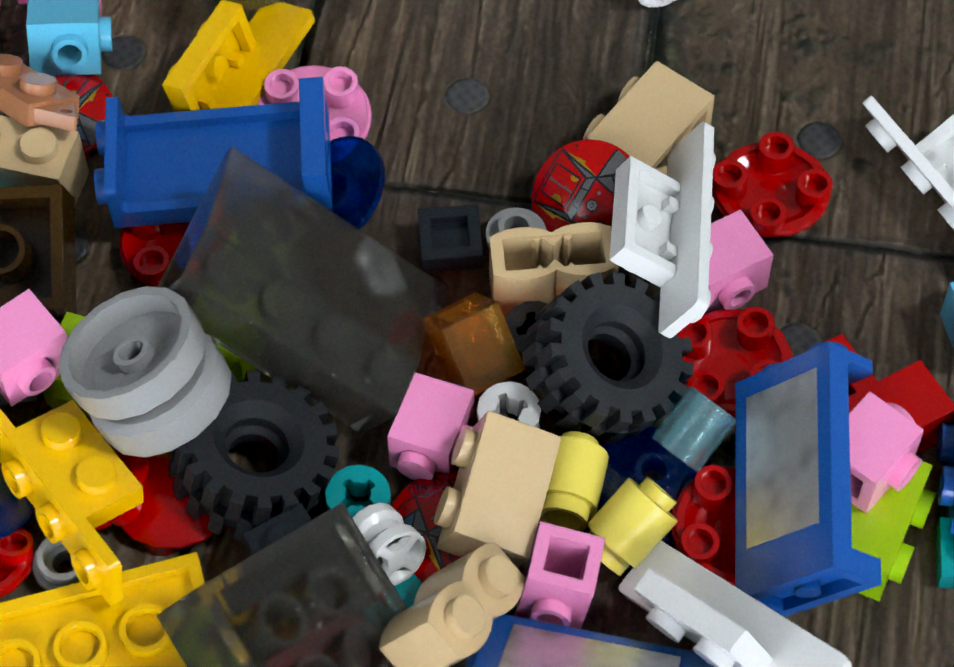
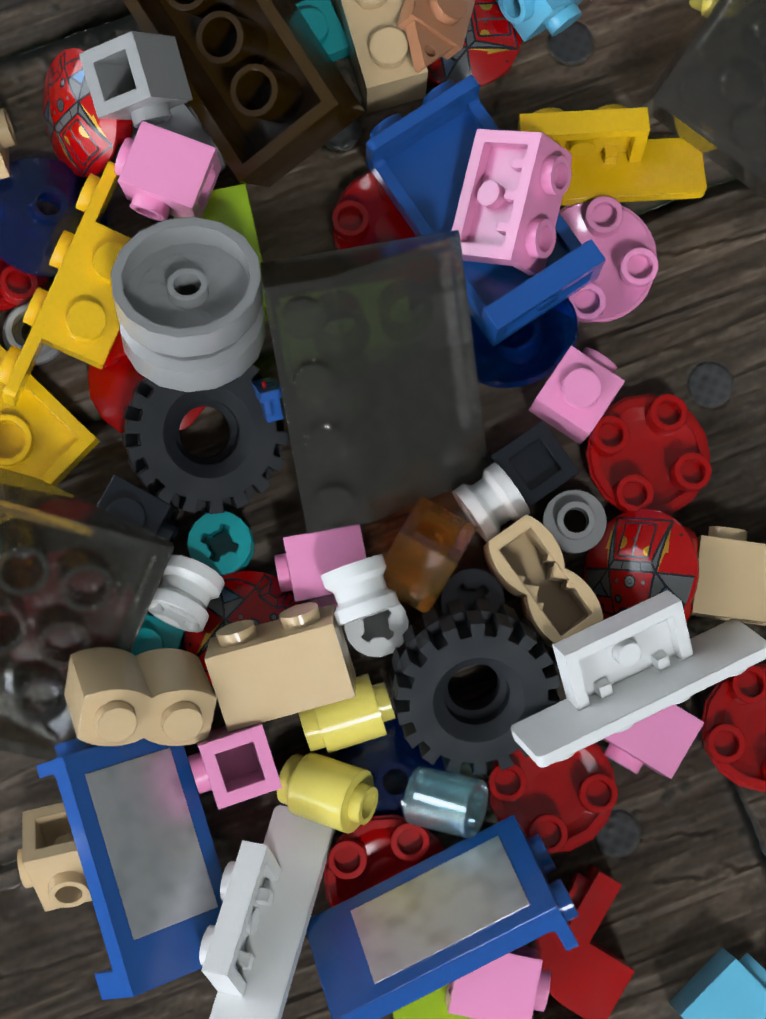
camera: 55 degrees right, 25 degrees up
(214, 112) = (512, 199): none -> bright pink bracket
(264, 373) = (268, 393): none -> blue piece
(415, 173) = (578, 393): none -> bright pink brick
(458, 273) = (491, 502): none -> white wheel
(472, 384) = (360, 589): none -> white wheel
(494, 155) = (648, 454): none -> red dish

